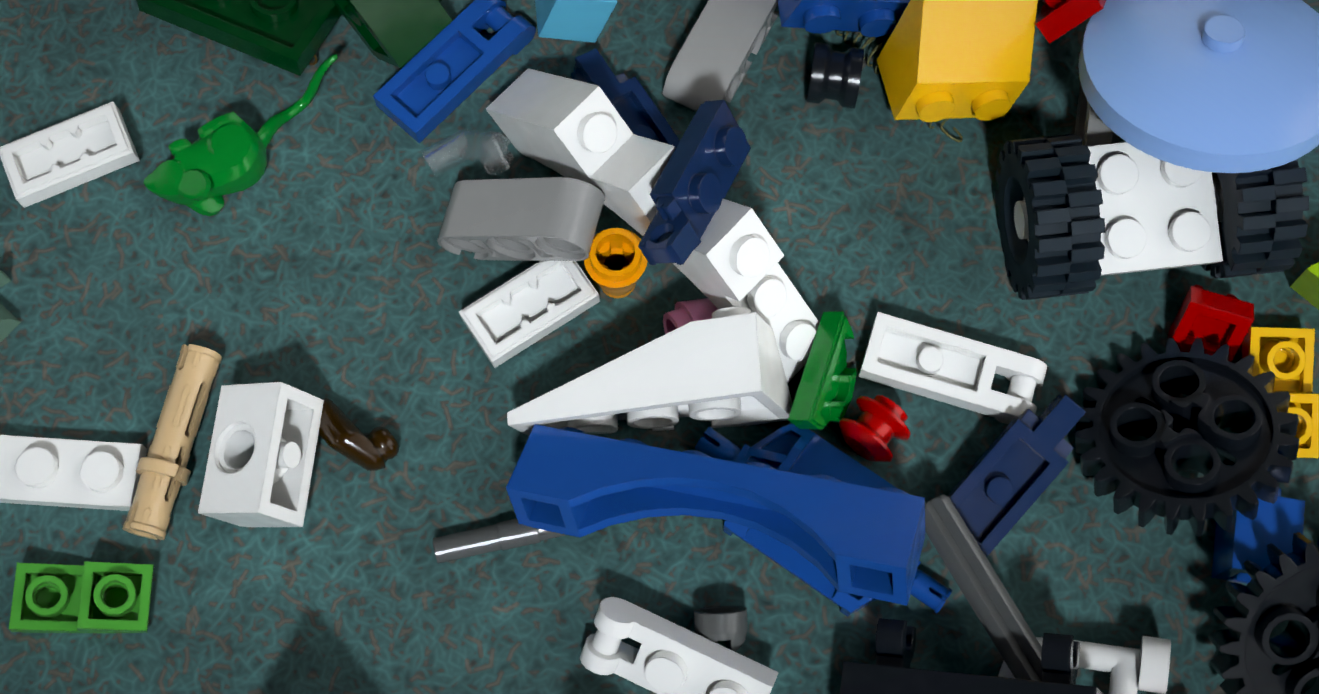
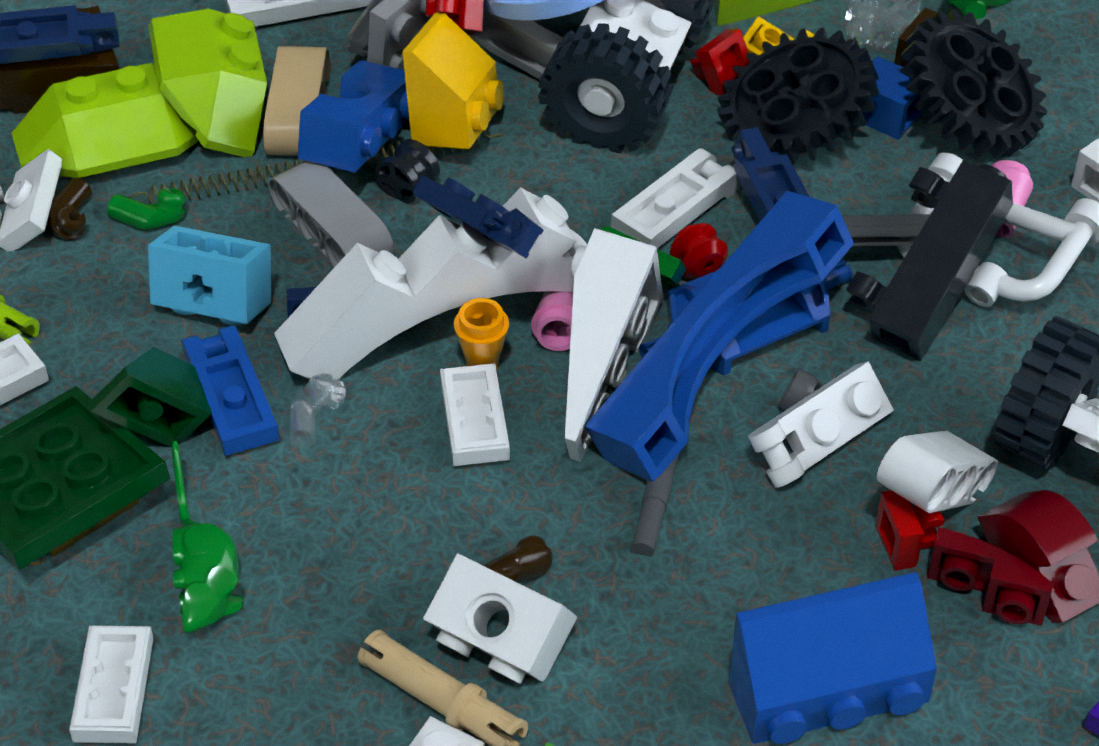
camera: 65 degrees left, 25 degrees down
(522, 219) = (407, 373): light grey beam -> none

